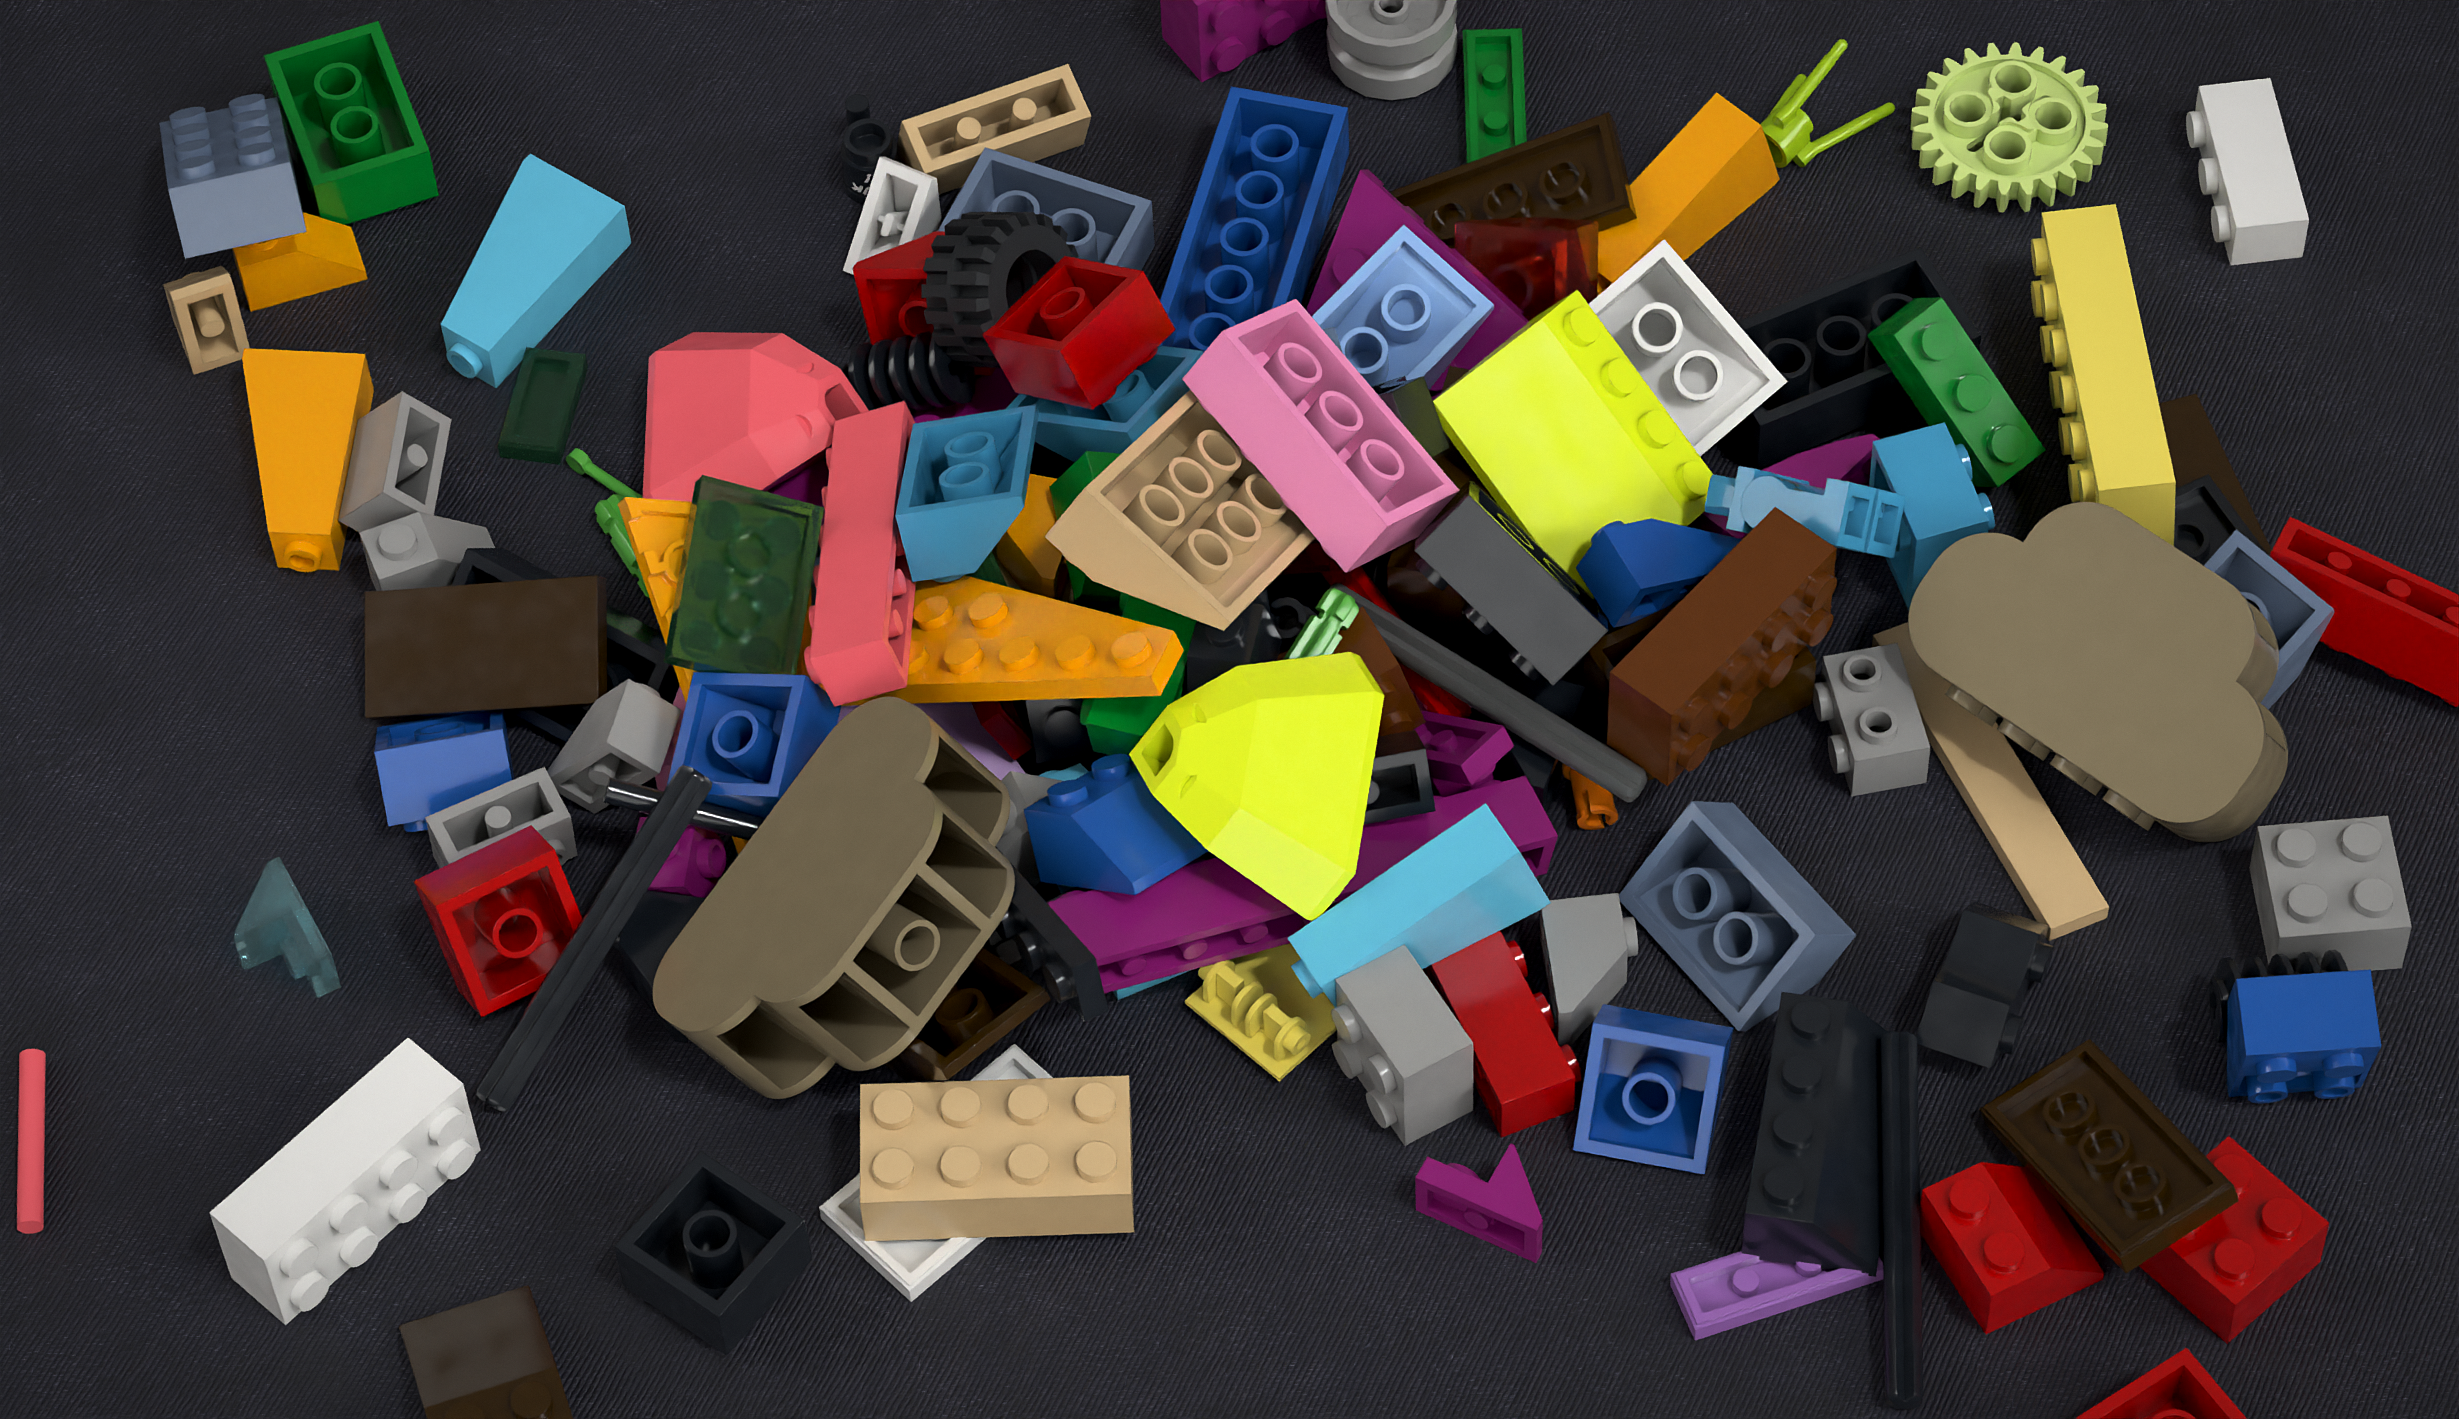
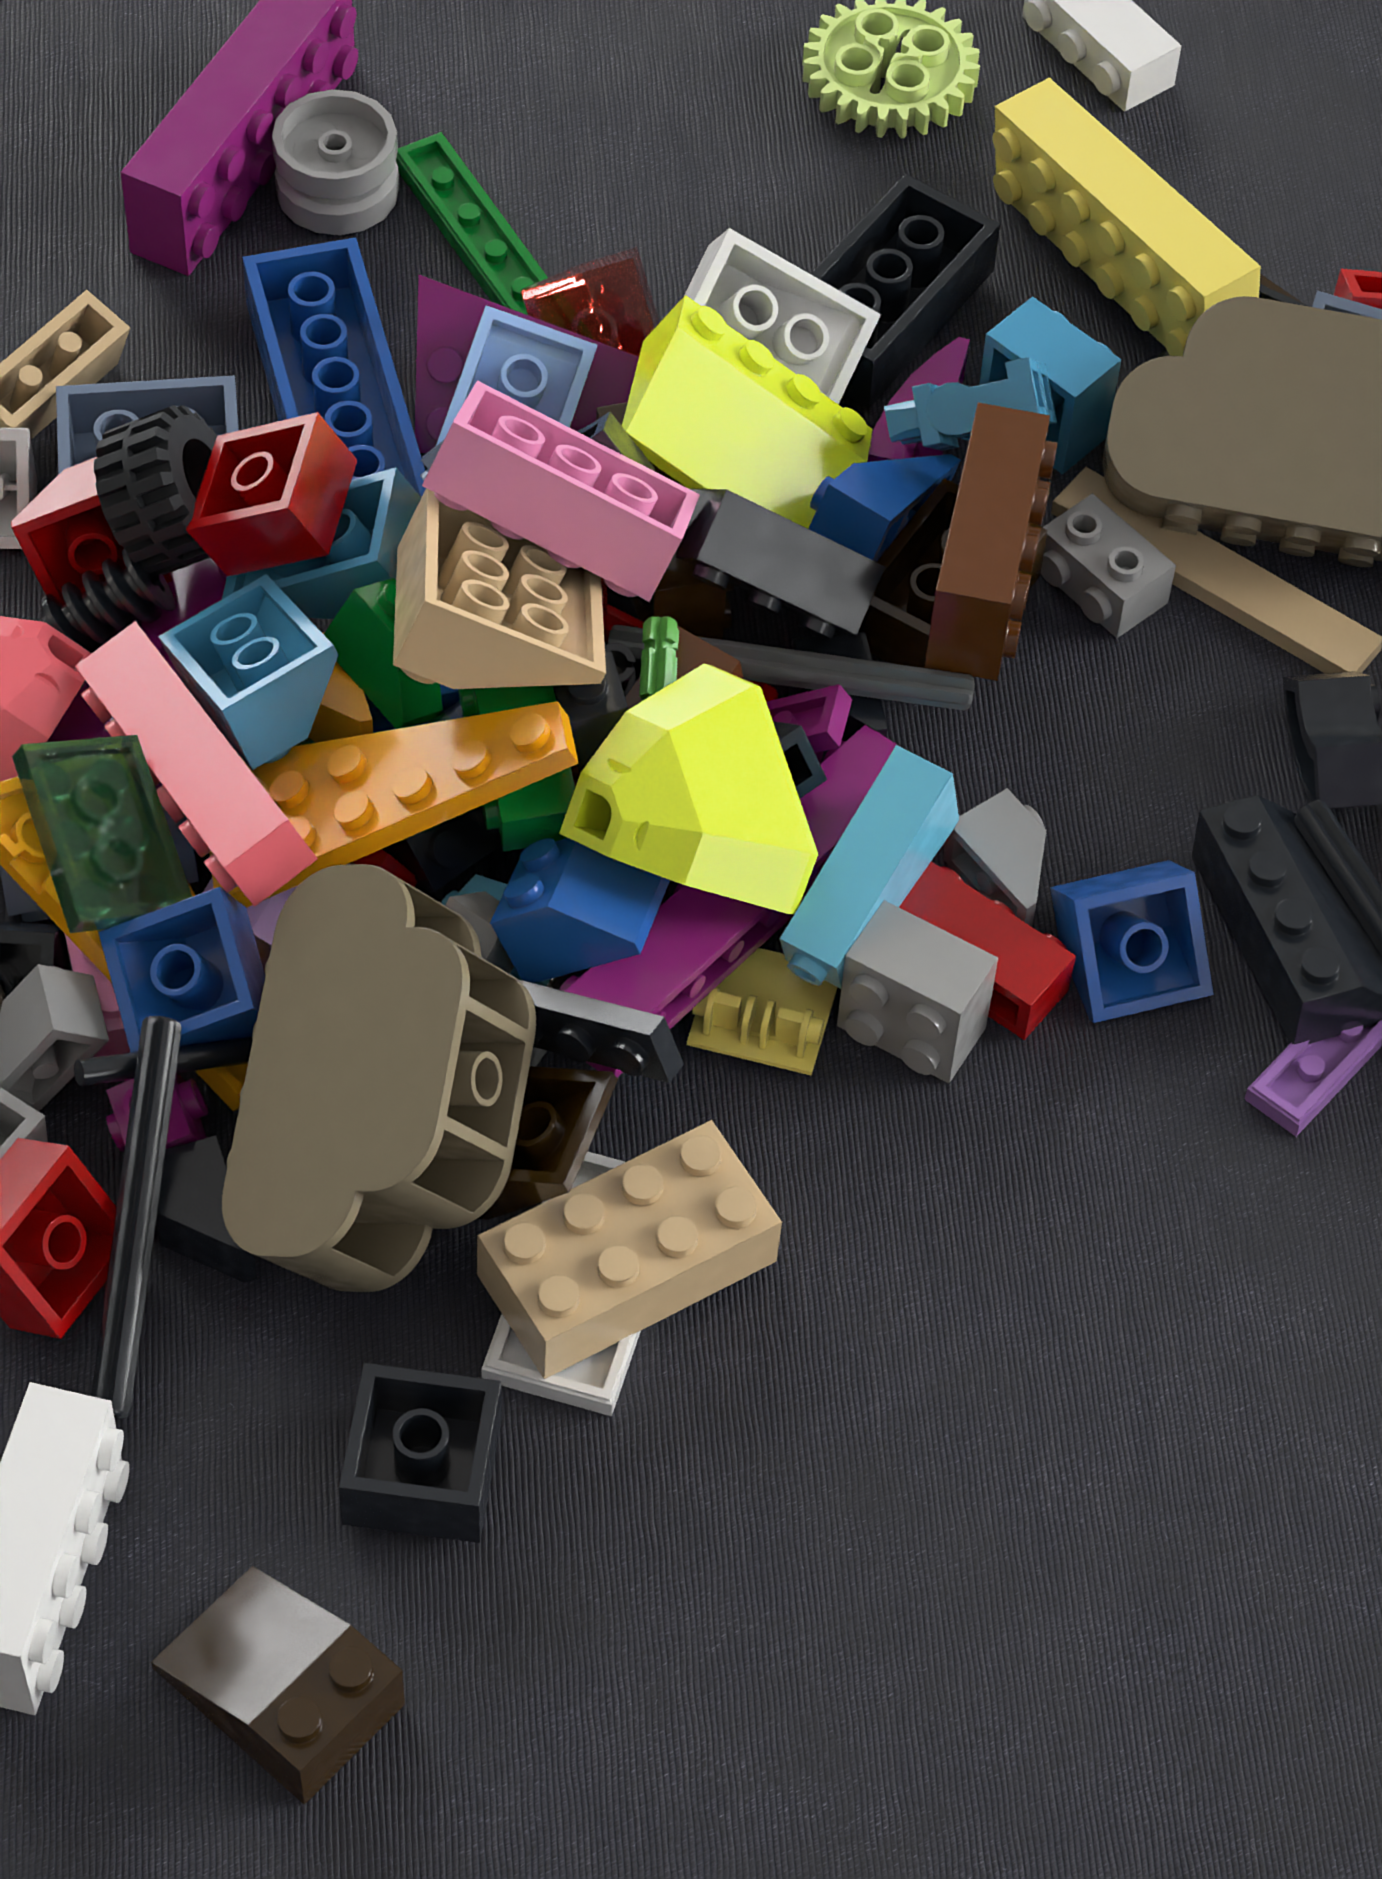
camera: 35 degrees left, 0 degrees up
(1493, 1211) = (1076, 1100): magenta slope -> none
(1557, 175) = (563, 228): dark brown tile -> none
(1590, 801) = (910, 719): orange pin -> none
(1691, 188) = (678, 203): light orange slope -> none
(1734, 913) = (1102, 769): sand blue slope -> none
(1789, 127) = (714, 135): lime plant -> none
(1956, 387) = (1006, 263): green brick -> none

